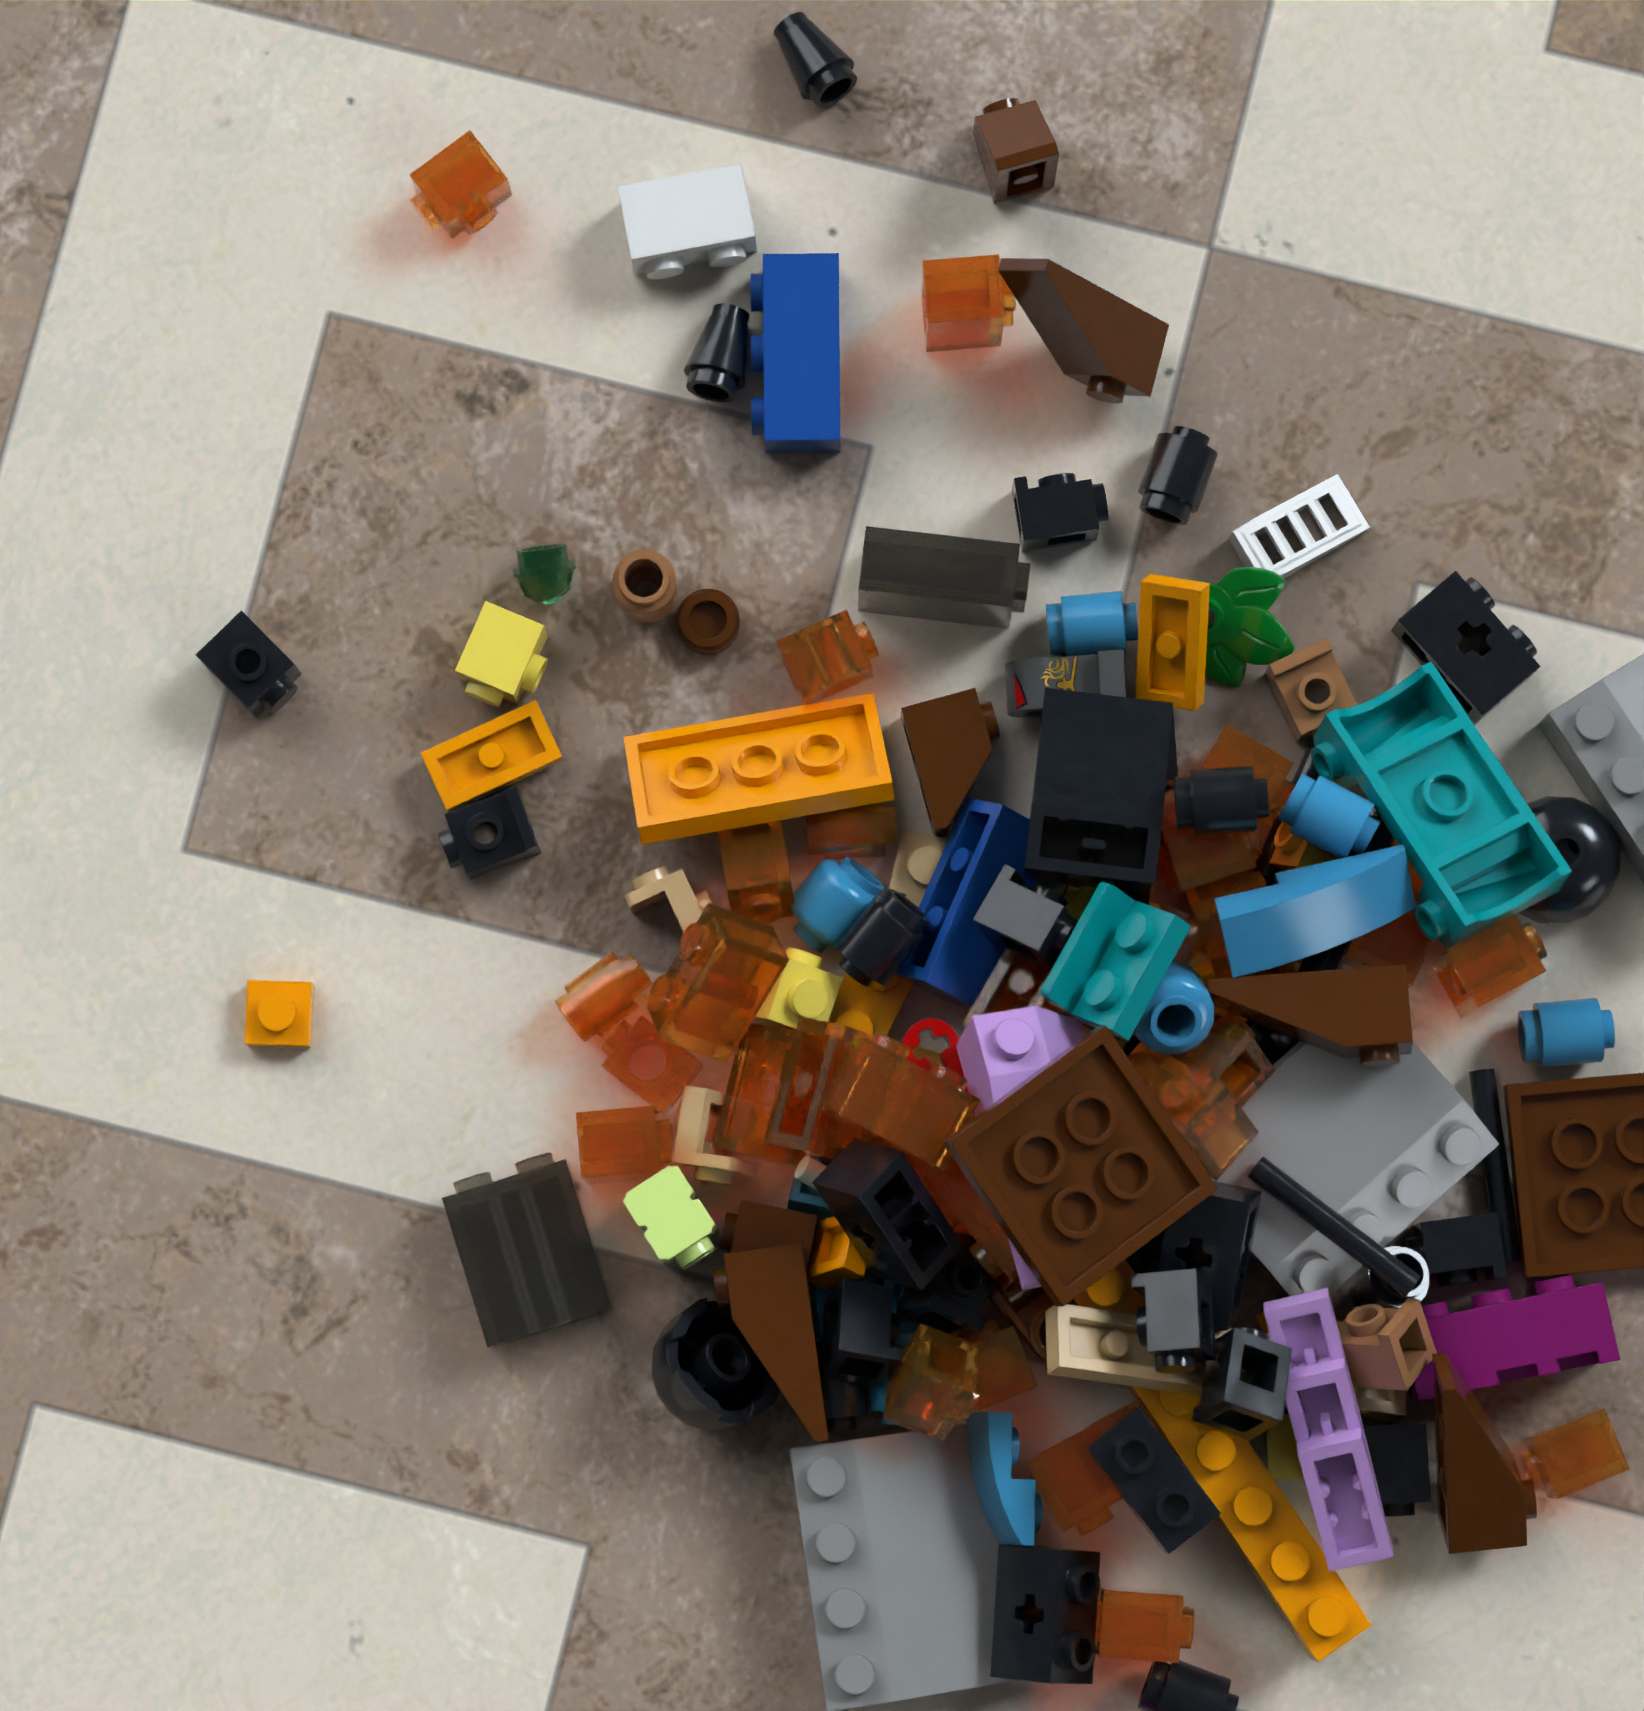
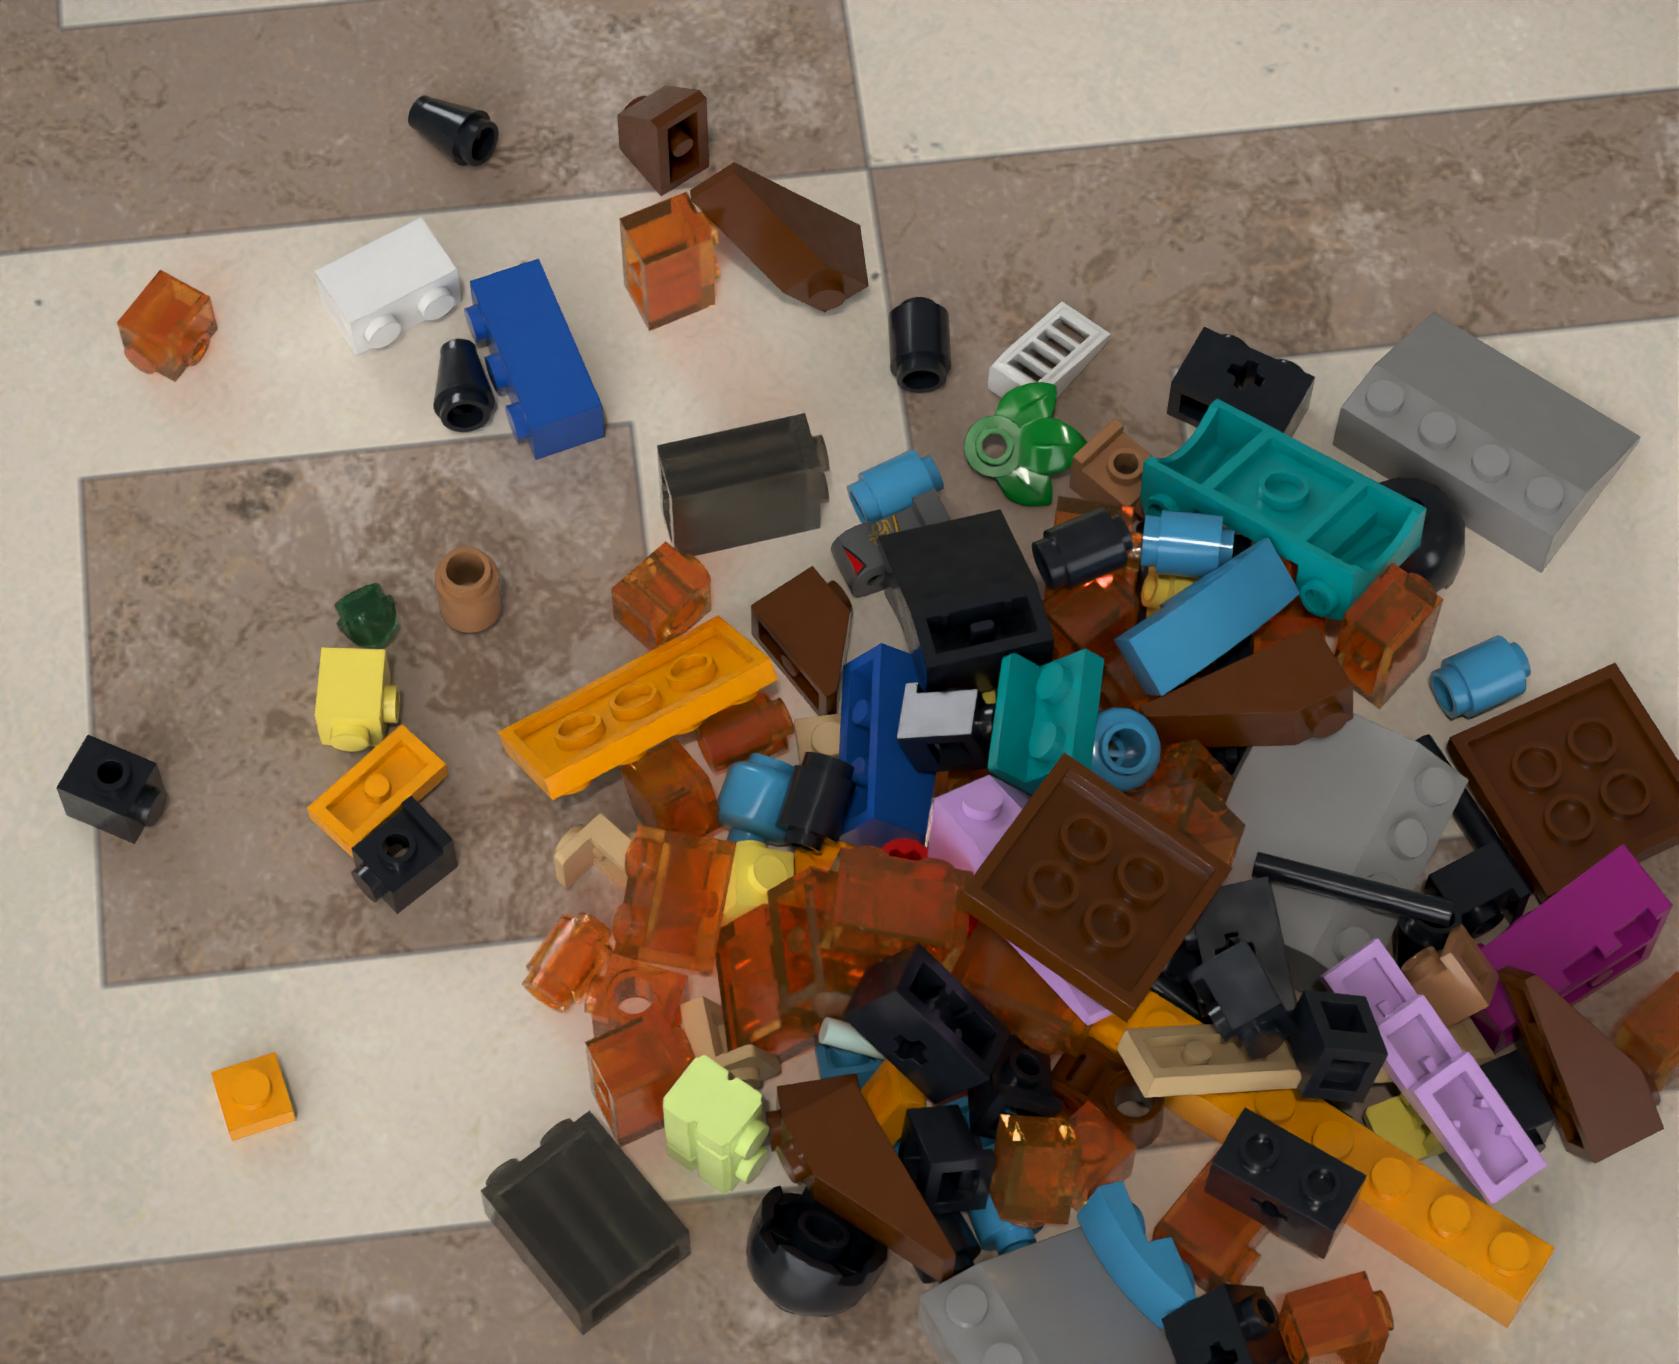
camera: 25 degrees left, 20 degrees down
(708, 621) = (538, 612): reddish brown tile -> none
(1058, 511) = (832, 400): black brick -> none
(1172, 641) = (975, 464): light orange plate -> none

